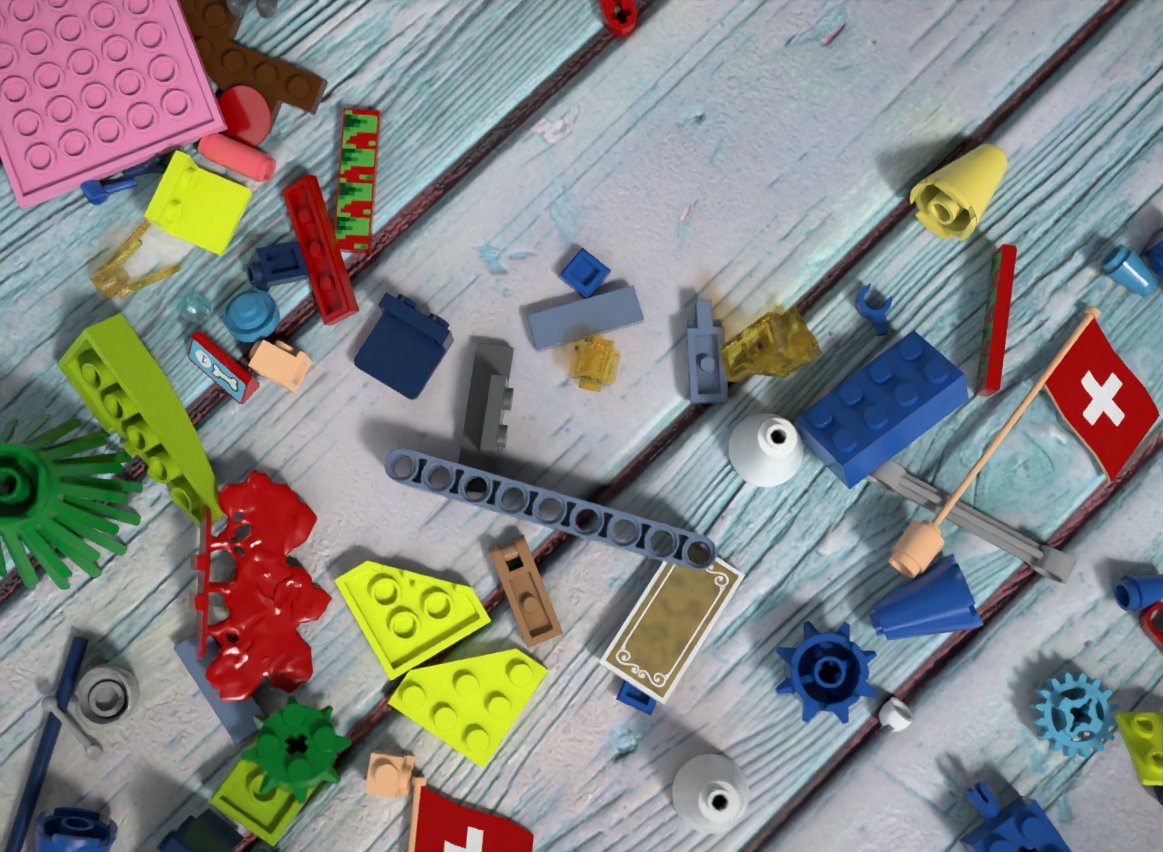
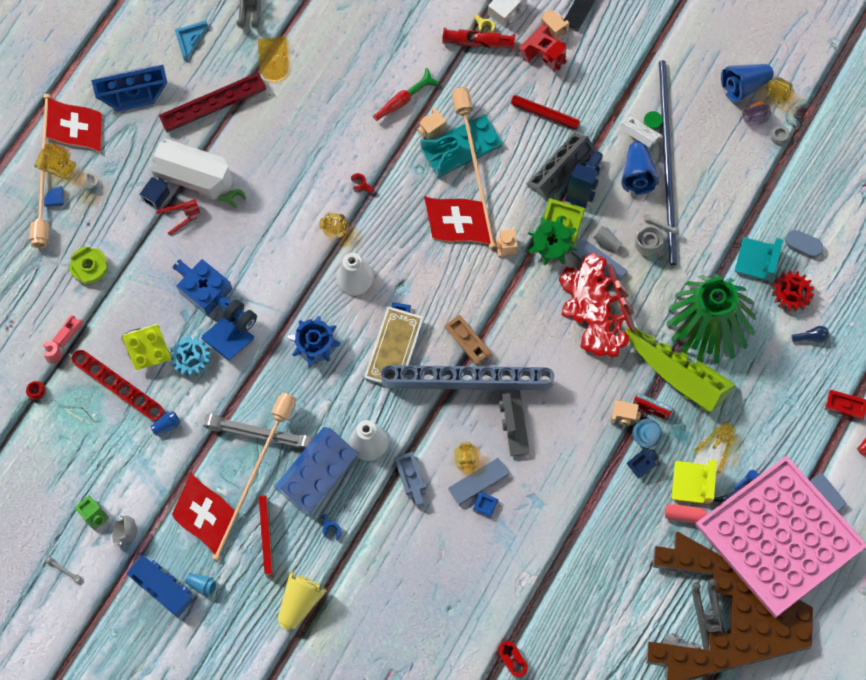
camera: 170 degrees right, 10 degrees down
(189, 727) = (607, 239): none -> light grey cone
(245, 115) = (689, 536): red piece -> none
(320, 250) = (625, 477): red tile -> none
(357, 180) = (619, 520): tile -> none
(404, 346) = (565, 439): dark blue bracket -> none
(409, 613) = (521, 315): neon yellow plate -> none
(470, 699) = (479, 287): neon yellow plate -> none
(785, 346) = (368, 488): clear yellow tile -> none
(895, 715) = (271, 333): white hinge -> none
(927, 604) = (268, 385): blue cone -> none
(987, 737) = (231, 332): none -> blue plate

